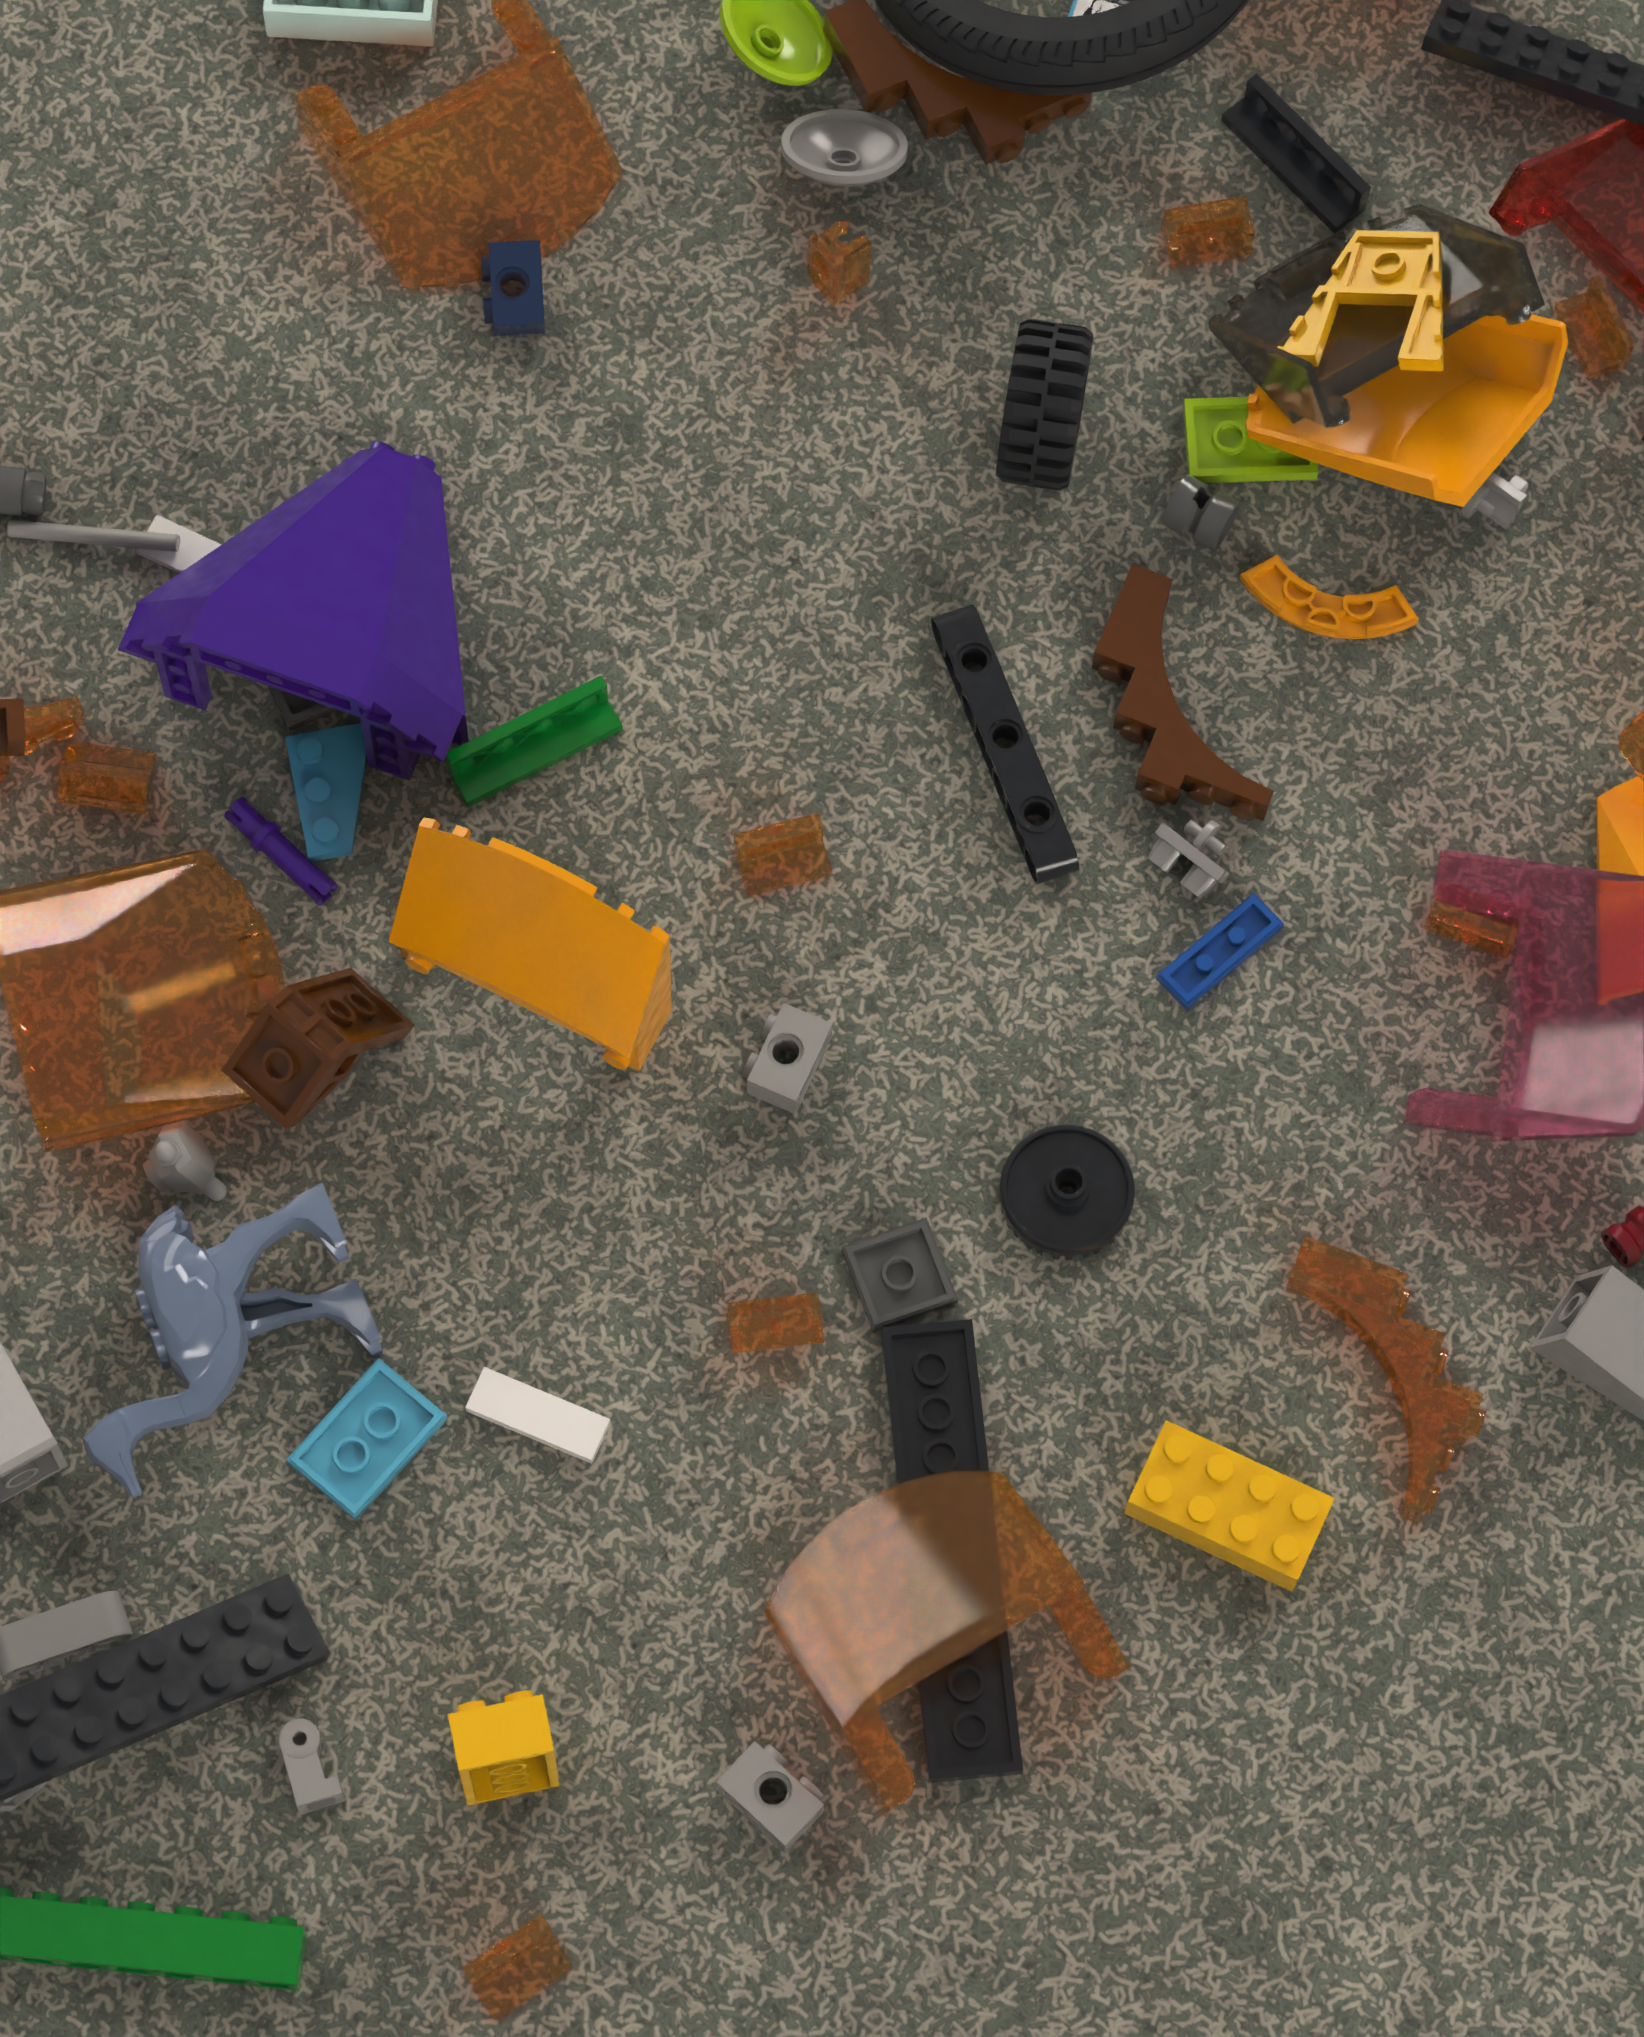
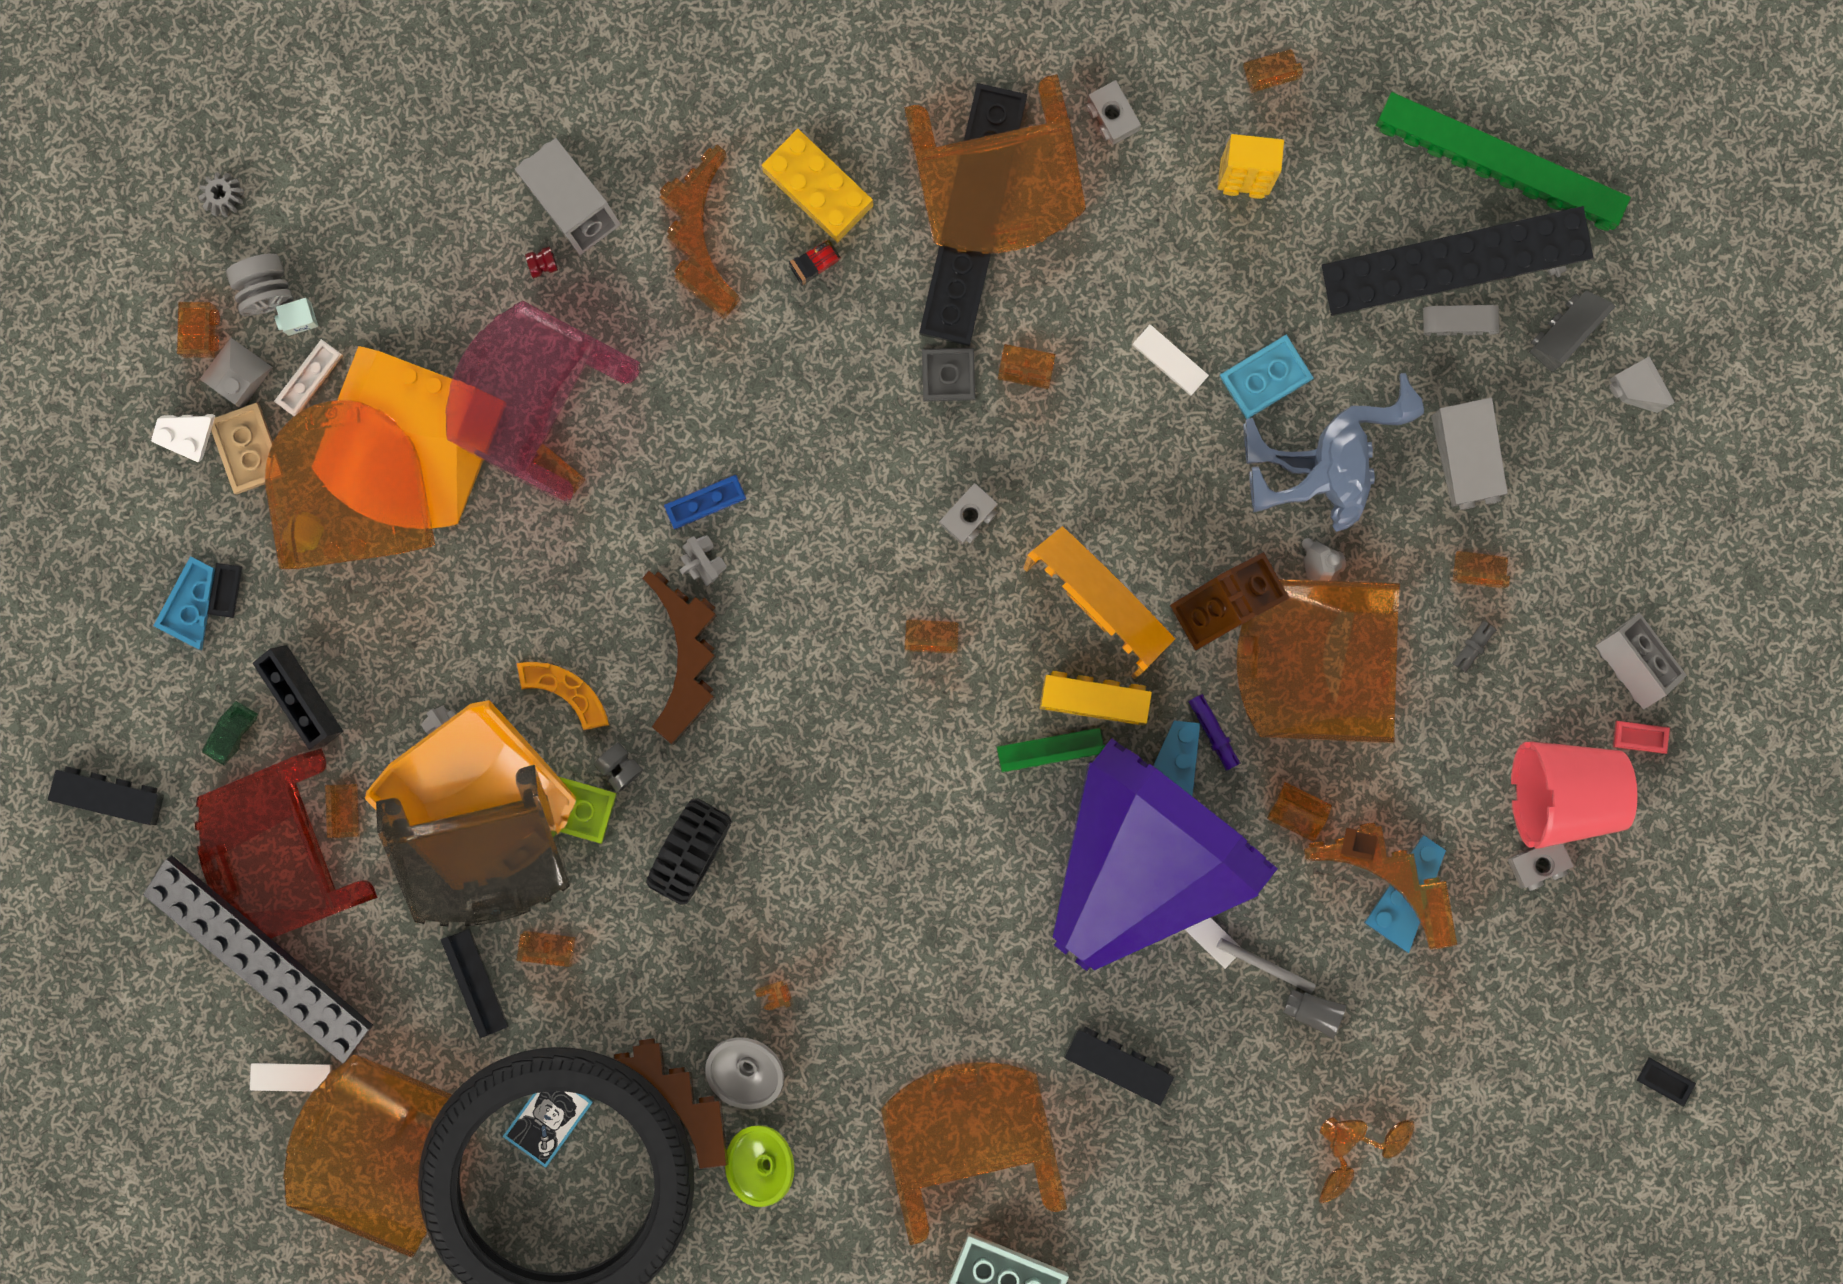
camera: 155 degrees left, 15 degrees up
(279, 327) = (1119, 1066): none -> black brick
(301, 1753) = (1352, 207): light grey leg -> none
(523, 264) = (962, 1057): dark blue brick -> none
(528, 815) = (1094, 699): none -> yellow brick
(1016, 769) = (782, 682): black beam -> none
(1062, 1221) = (837, 370): black wheel -> none
(1188, 1380) = (814, 262): none -> leg
(1381, 270) = (453, 876): yellow wing -> none

